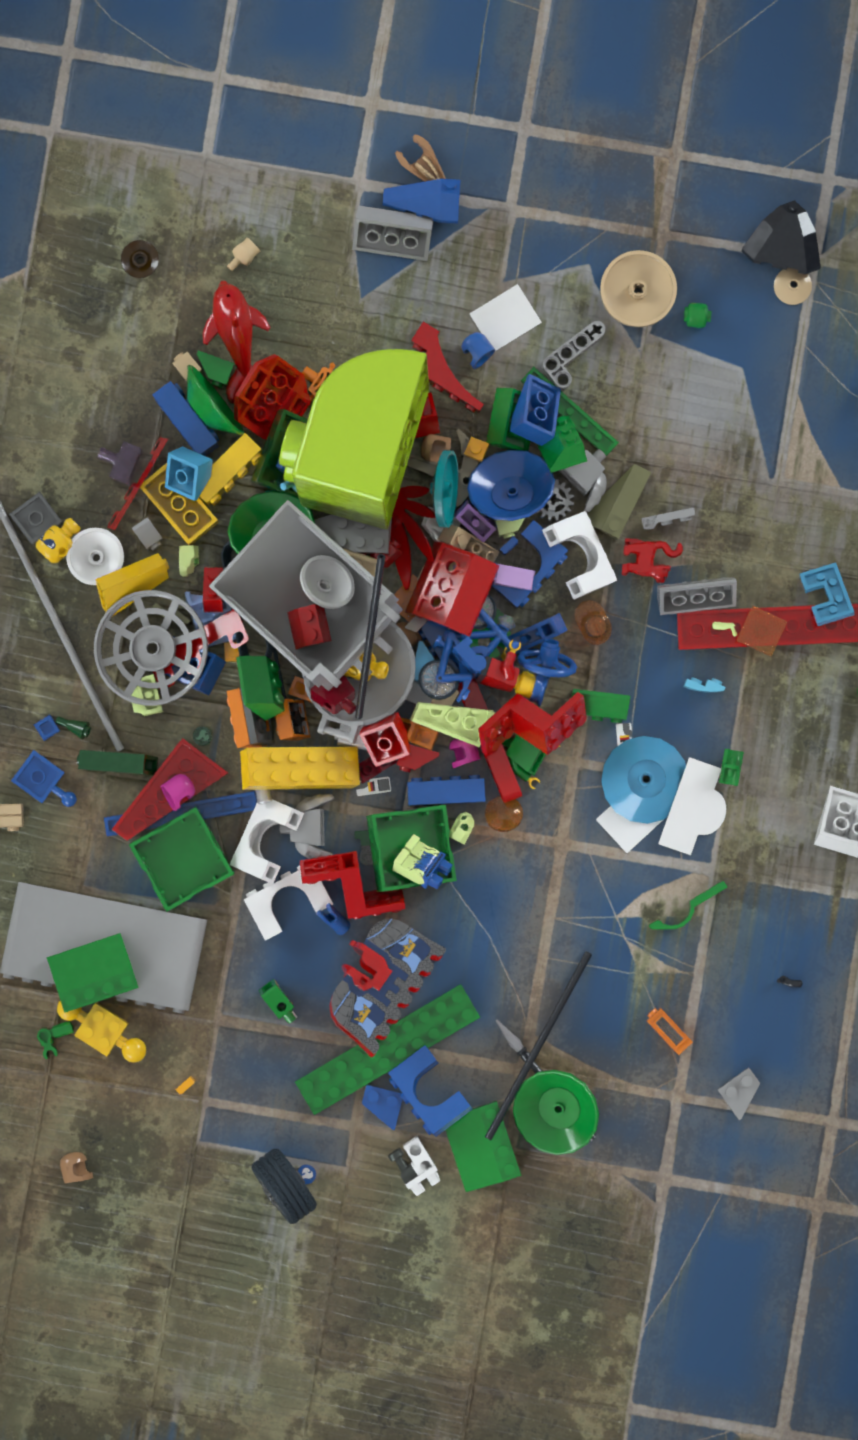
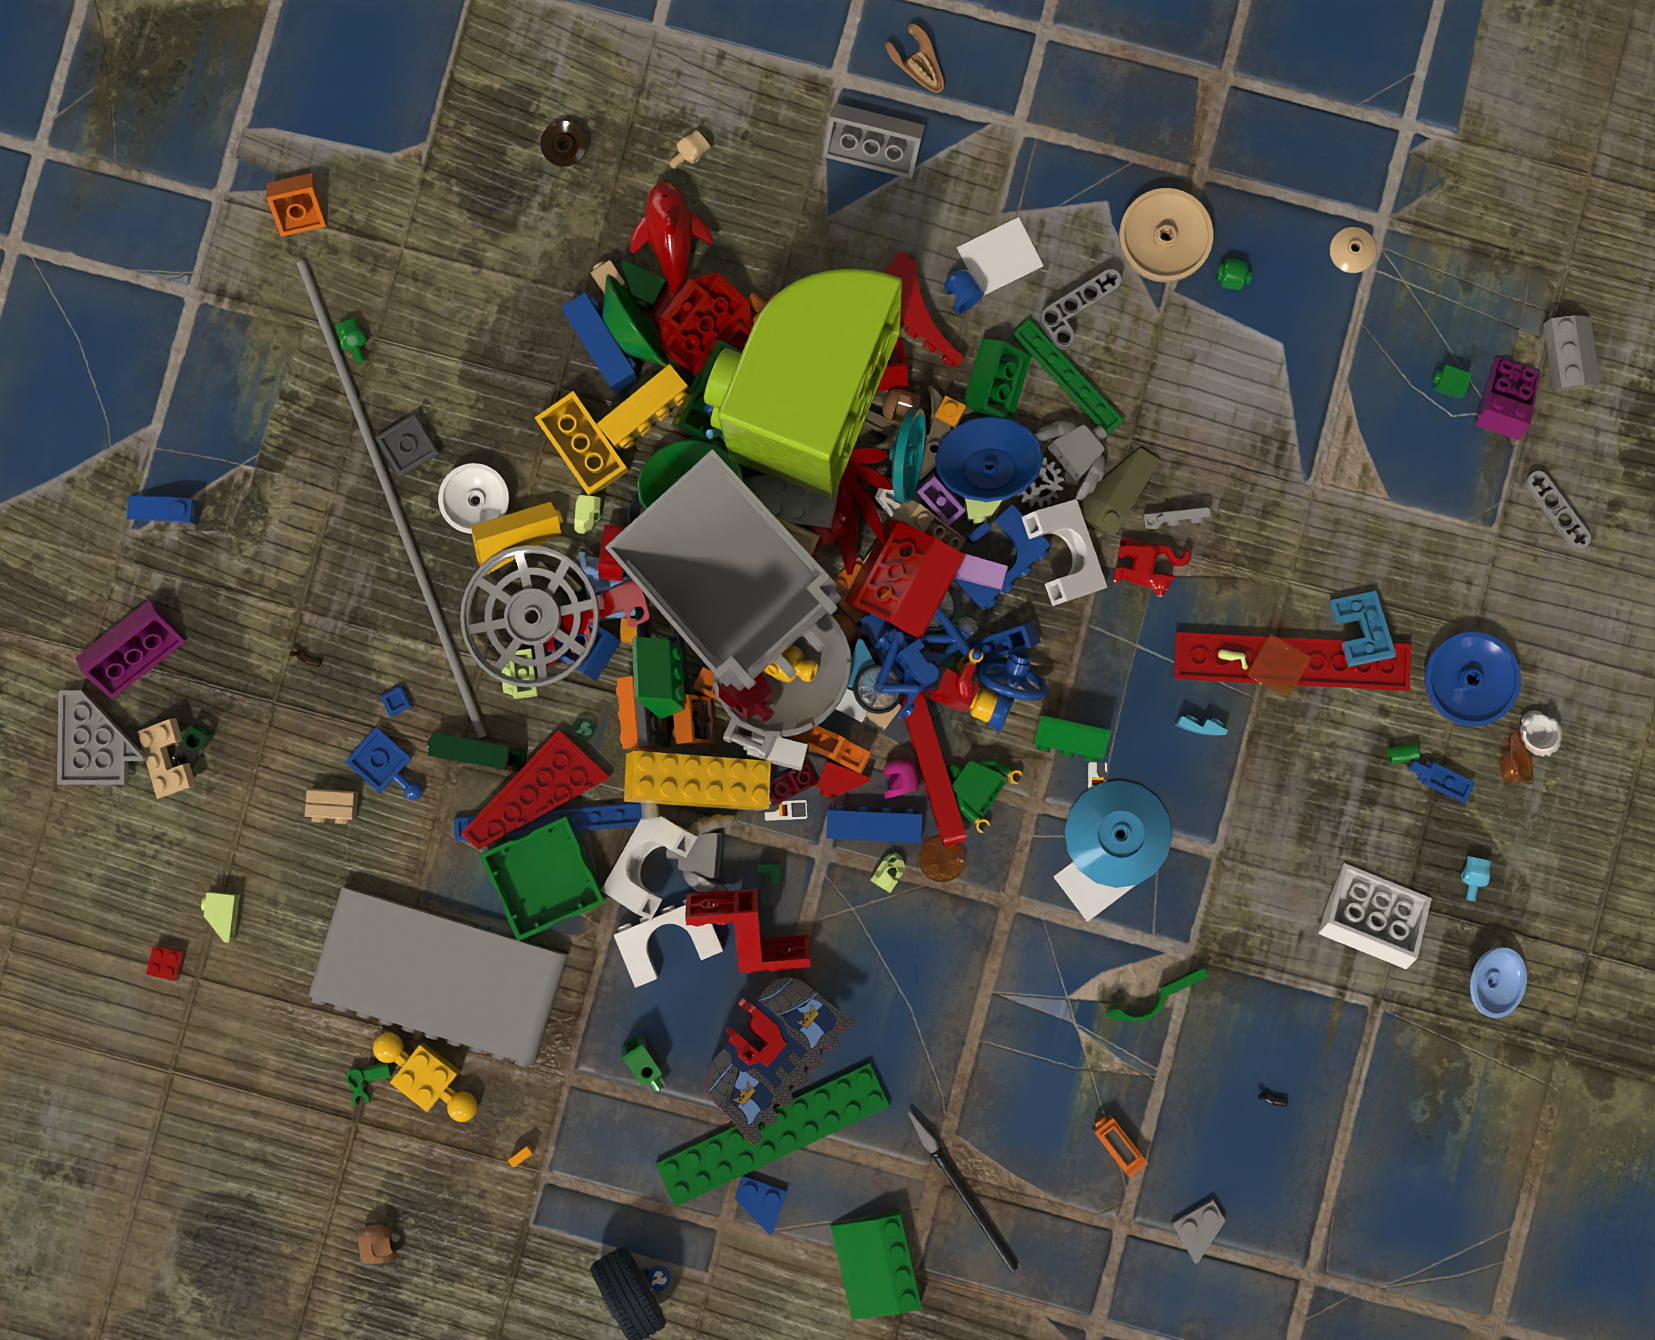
camera: 15 degrees right, 0 degrees up
(57, 541) = (429, 476): yellow piece -> none
(79, 728) = (435, 706): dark green cone -> none
(92, 972) = (418, 1008): green slope -> none
(123, 462) = (519, 388): clear purple brick -> none
(136, 486) = (507, 449): red piece -> none
(148, 534) = (540, 477): light grey slope -> none
(176, 789) = (544, 792): dark pink helmet -> none
(187, 472) = (594, 406): dark azure slope -> none
(309, 626) = (725, 608): red slope -> none
(332, 577) = (758, 549): white dish -> none
(335, 920) = (722, 970): blue hinge -> none
(370, 635) = (798, 625): black piece -> none
(386, 740) = (806, 757): red slope -> none
(393, 830) = (824, 892): green tile -> none
(415, 624) = (856, 617): white sticker -> none
(419, 1169) = (798, 1286): white hips -> none
(421, 863) = (835, 913): hips -> none
(429, 198) = (923, 102): blue wedge -> none
(435, 1117) = (791, 1174): blue arch -> none
(452, 720) = (895, 742): yellowish green wing -> none
(532, 724) = (988, 754): red bracket -> none
(536, 411) = (1028, 372): blue slope -> none
(538, 1045) = (957, 1150): black piece -> none
(546, 1126) = (960, 1251): green dish -> none
(565, 448) = (1055, 415): green slope -> none
(593, 622) = (1072, 636): clear orange piece -> none
(695, 808) = (1176, 875): white sticker -> none
(697, 595) = (1203, 615): light grey slope -> none
(731, 767) = (1225, 829): green hips -> none
(785, 240) = (1351, 192): black brick -> none

